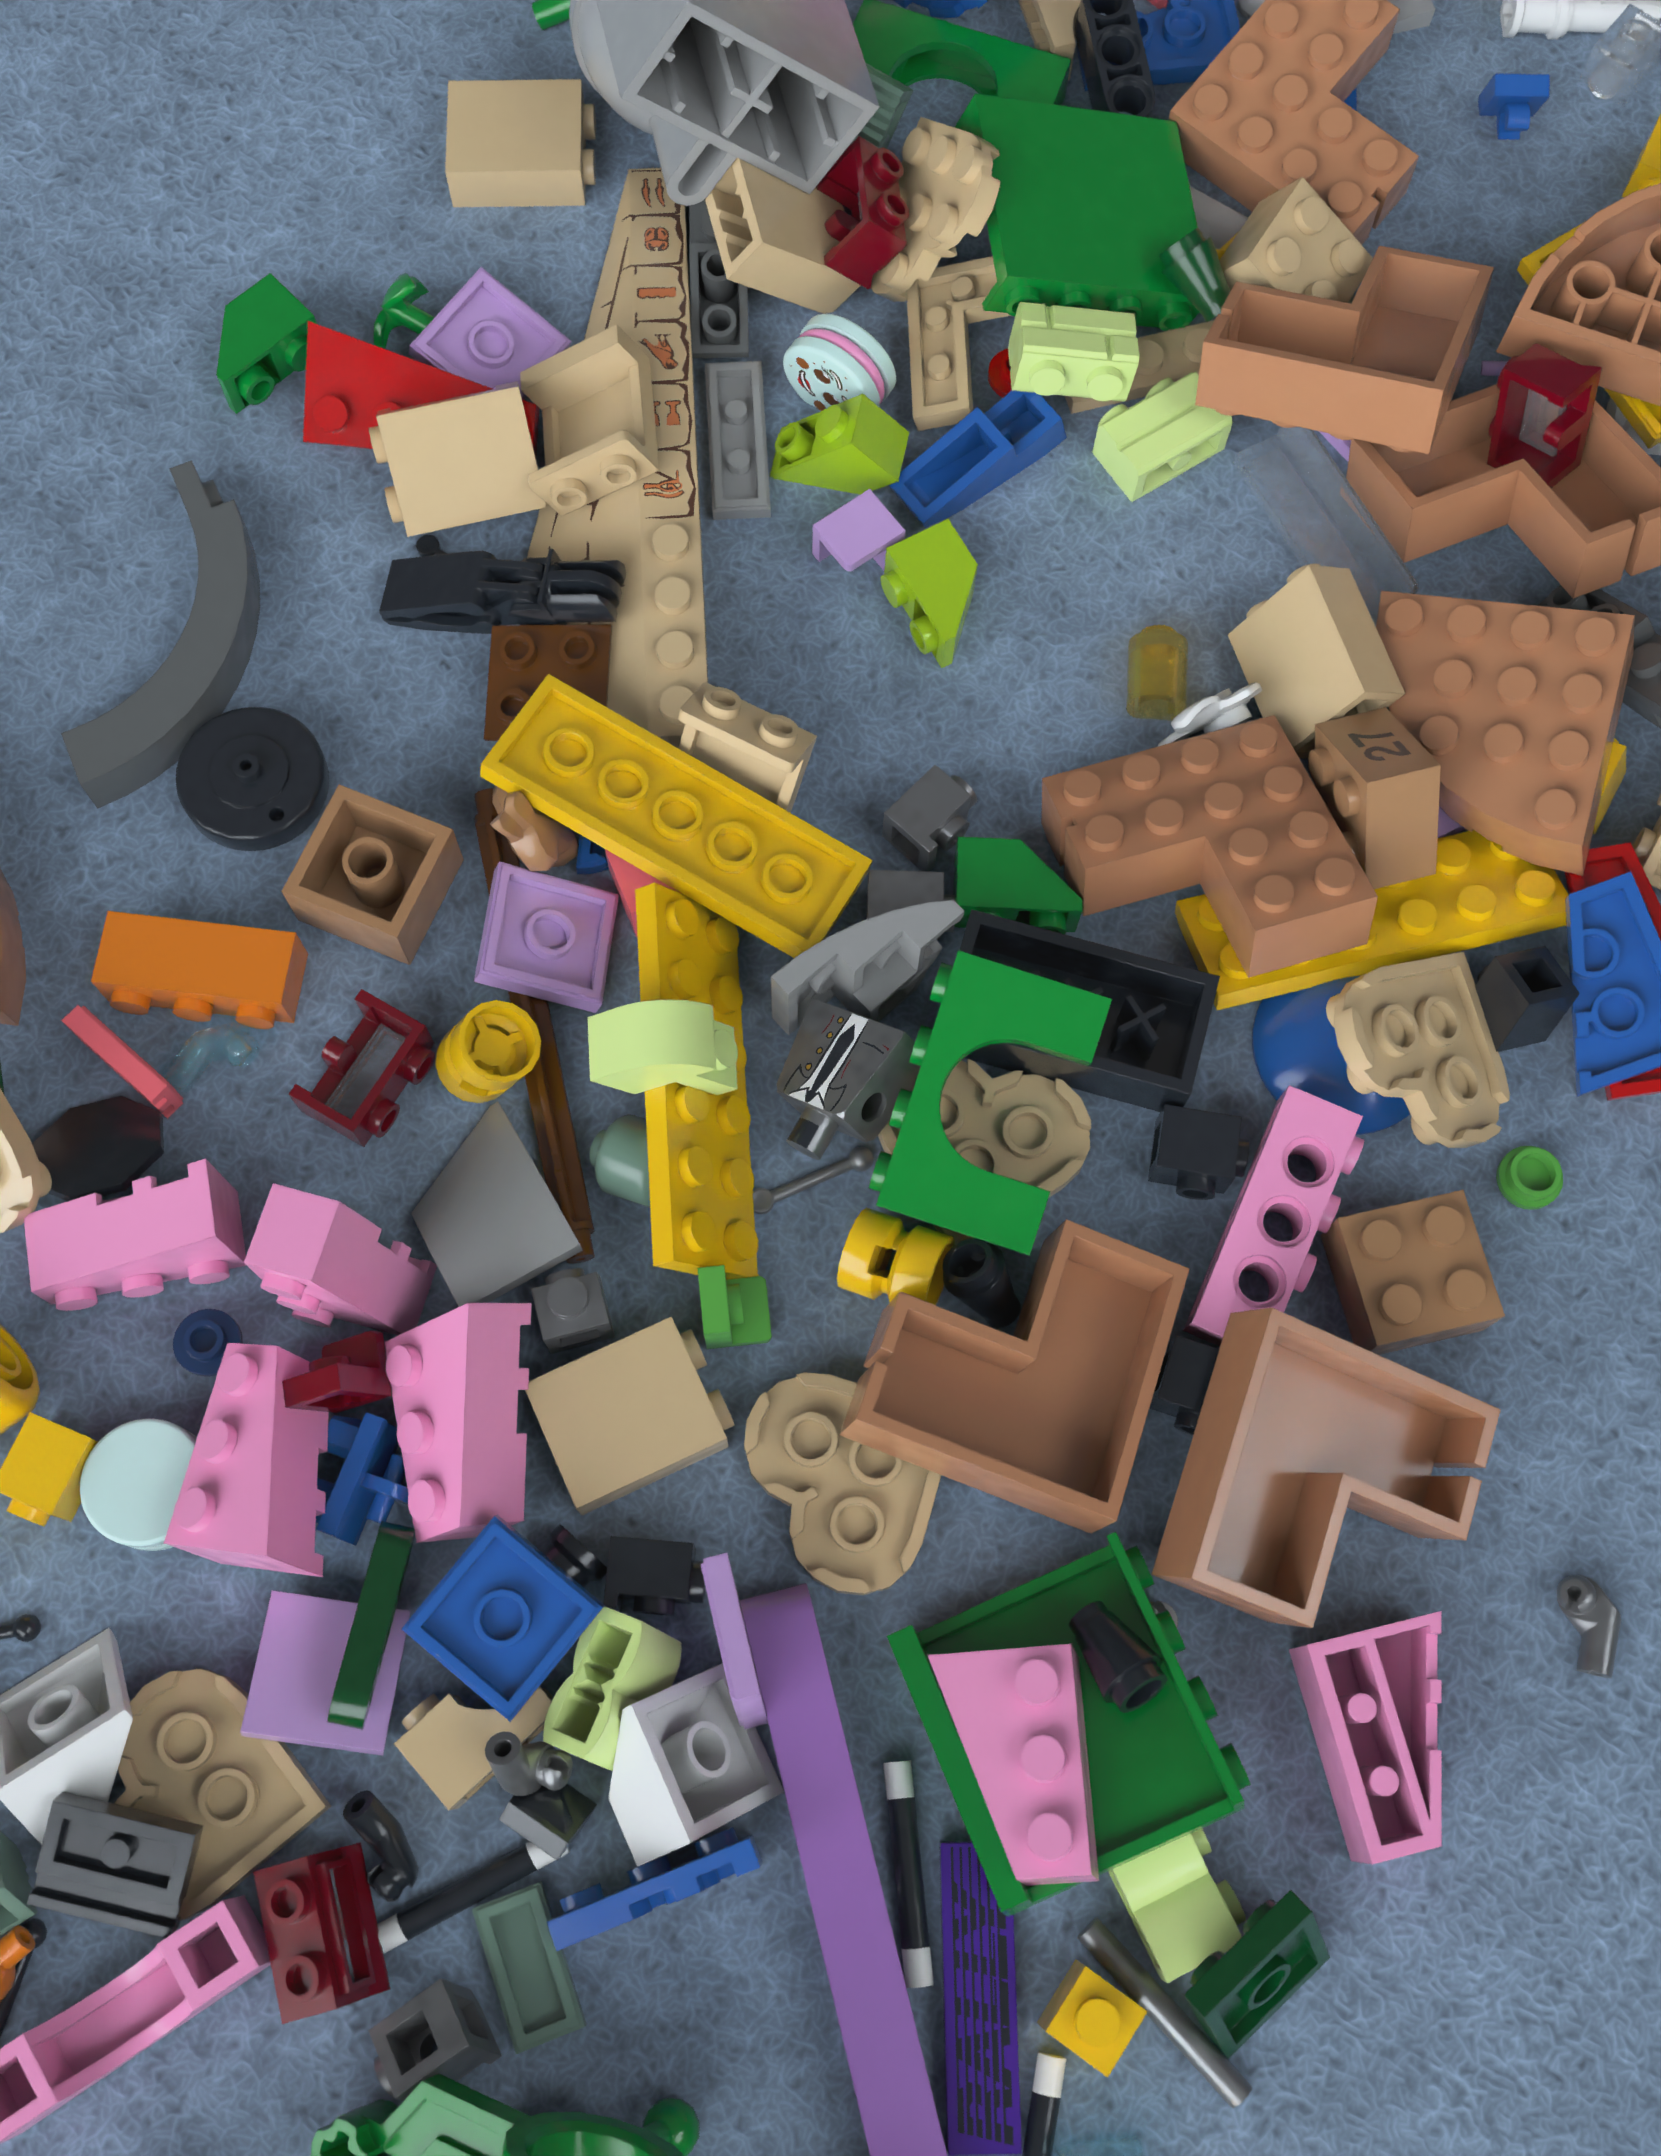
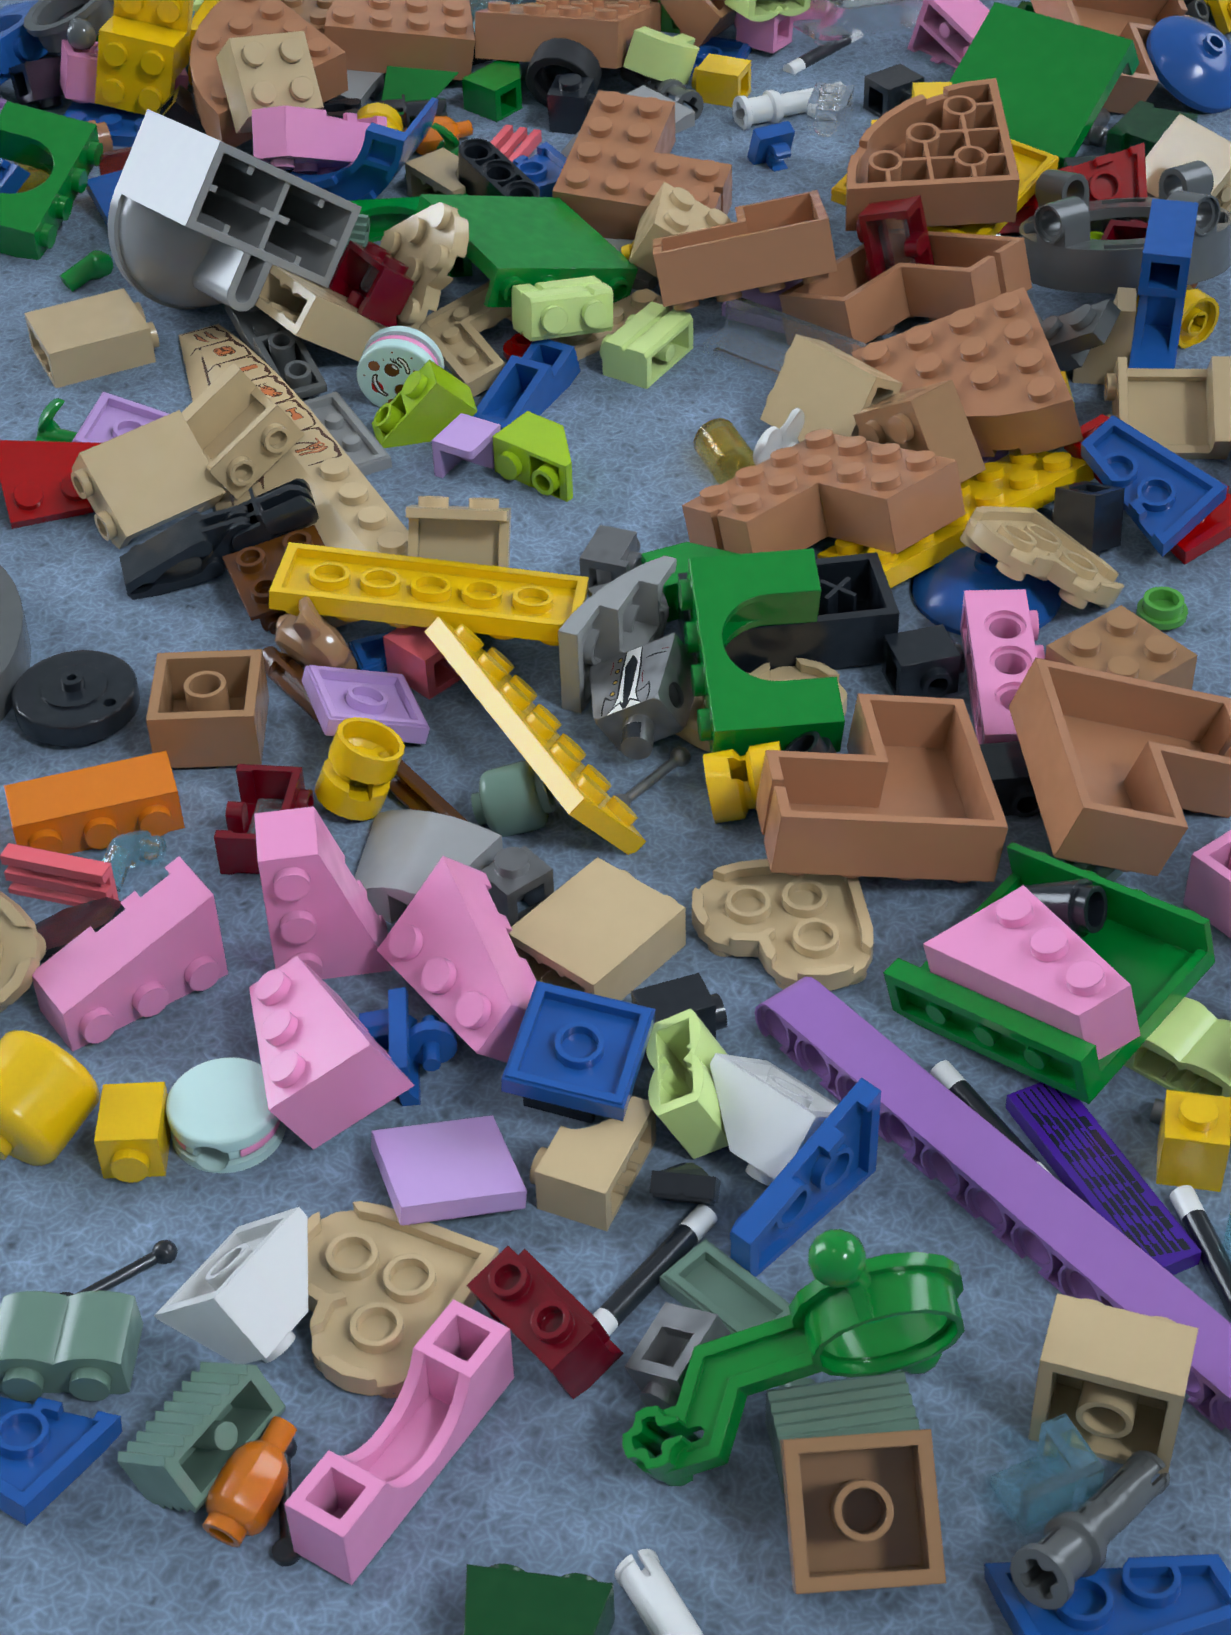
camera: 20 degrees left, 30 degrees down
(115, 1864) = (342, 1329): plate -> none
(203, 1340) = (227, 1011): dark blue plate -> none
(344, 1378) = (358, 974): dark red bracket -> none
(371, 1626) = (471, 1110): dark green beam -> none
(387, 1840) = (571, 1267): black arm -> none
(527, 1767) = (645, 1143): flat silver arm -> none
(662, 1044) = (500, 678): yellowish green brick -> none
(733, 1309) = (634, 848): bright green bracket -> none
(733, 1641) = (771, 1008): lavender tile -> none
(1197, 273) = (621, 248): dark green cone -> none

